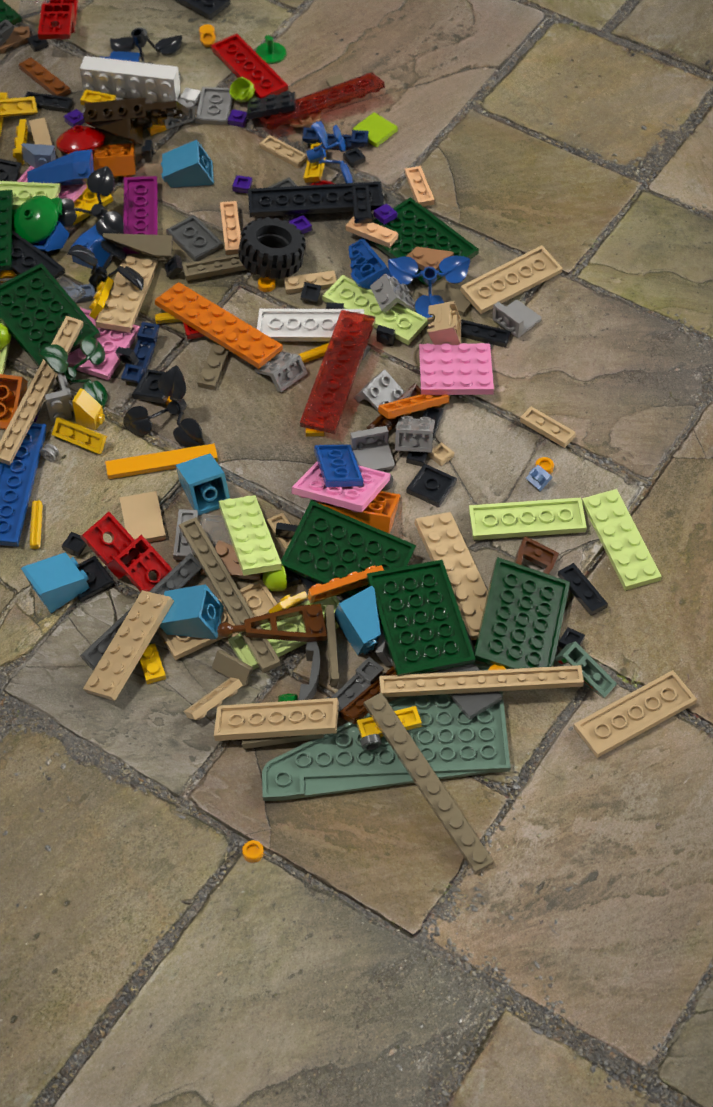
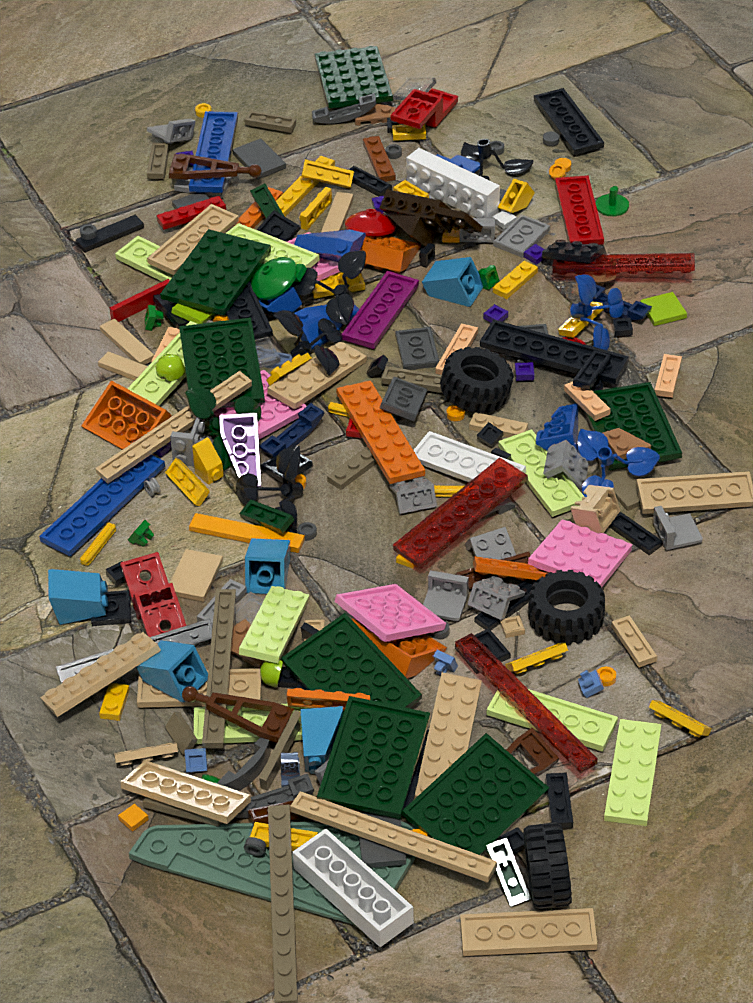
camera: 30 degrees right, 10 degrees down
(38, 154) = (321, 222): sand blue slope -> none
(53, 66) = (393, 151): none -> dark grey tile
(54, 46) = (405, 132): none -> yellow plate
(68, 499) = (141, 532): none -> green tile
(109, 381) = (242, 442): none -> lavender wedge
(127, 356) = (276, 428): black plate -> none
(154, 246) = (368, 339): dark tan slope -> none
(172, 439) = (266, 516): none -> dark green plate
(181, 11) = (550, 138): none -> dark grey tile
(190, 72) = (516, 197): none -> yellow slope
(212, 437) = (307, 529): none -> dark grey tile
(214, 152) = (489, 276): none -> green tile
(218, 287) = (403, 398): none -> dark grey tile
(236, 147) = (515, 279): none -> yellow plate
(241, 762) = (133, 817): none -> light orange tile
(242, 90) = (554, 228): lime hair -> none
(252, 851) = (90, 896): light orange tile -> none
(262, 686) = (196, 760): none -> medium blue tile
(283, 151) = (557, 297): tan tile -> none
(289, 602) = (268, 695): yellow plate -> none
(338, 465) = (399, 596): blue tile -> none
(350, 659) = (289, 767): none -> sand blue leg
(385, 213) = (612, 388): dark purple plate -> none
(385, 335) = (534, 499): black plate -> none
(410, 509) = (444, 662): none -> medium blue tile
(479, 741) = (353, 887): none -> white brick
(480, 401) = (562, 624): none -> black tyre
(481, 473) = (537, 658): none -> yellow plate
(504, 516) = (526, 703): none -> clear red plate
(626, 651) = (547, 865): none -> black tyre
(628, 478) = (679, 719): none -> yellow plate

